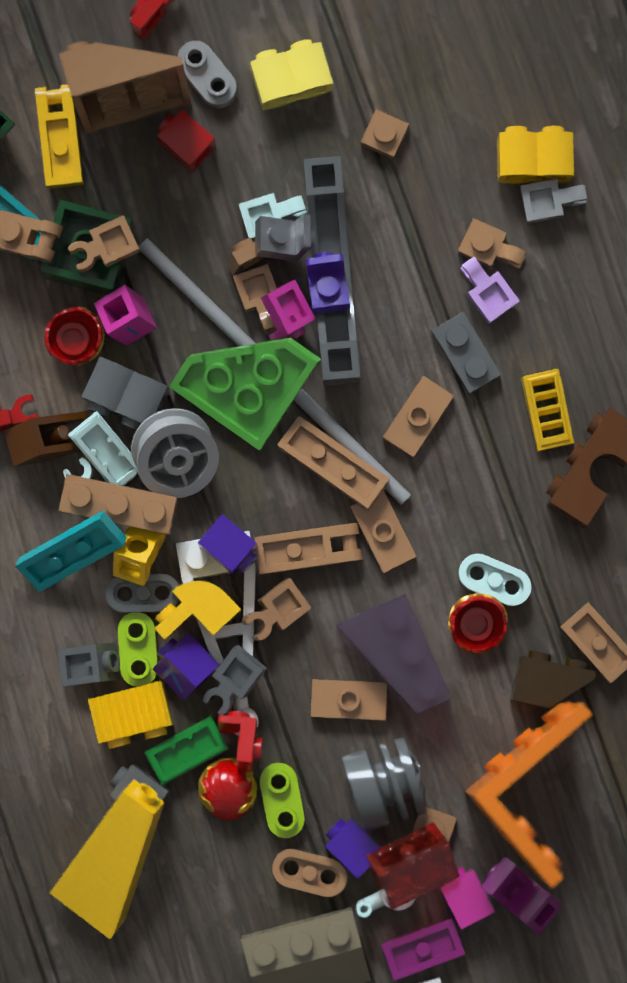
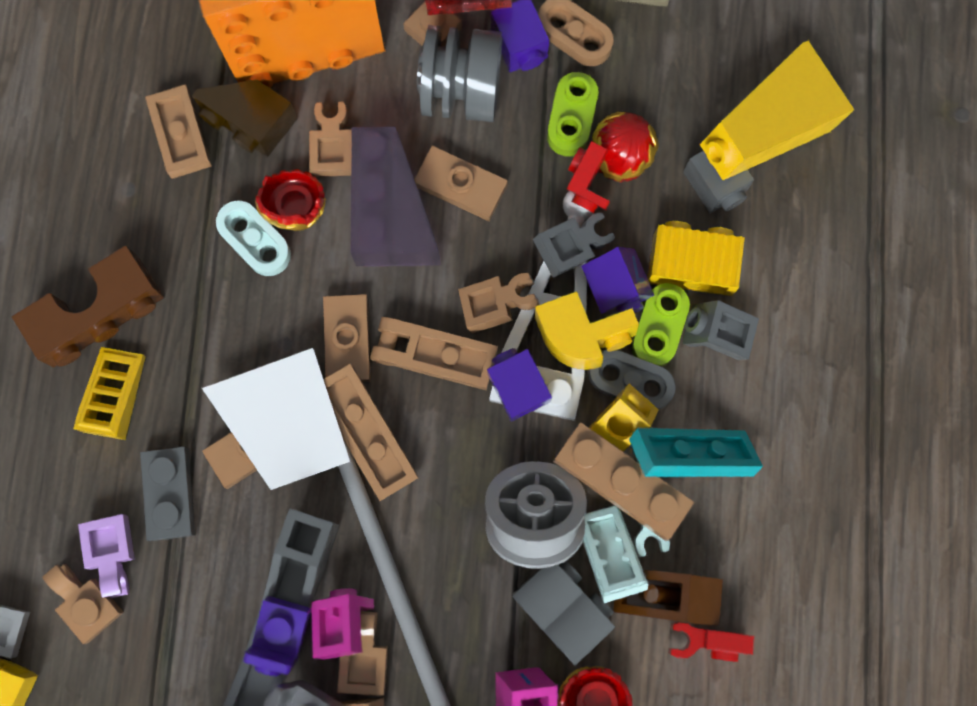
camera: 160 degrees left, 5 degrees down
(186, 750) = (651, 200): green plate -> none
(247, 385) = (420, 559): bright green plate -> none
(401, 444) = (282, 418): none -> white sticker
(466, 682) = (331, 146): none -> medium nougat plate

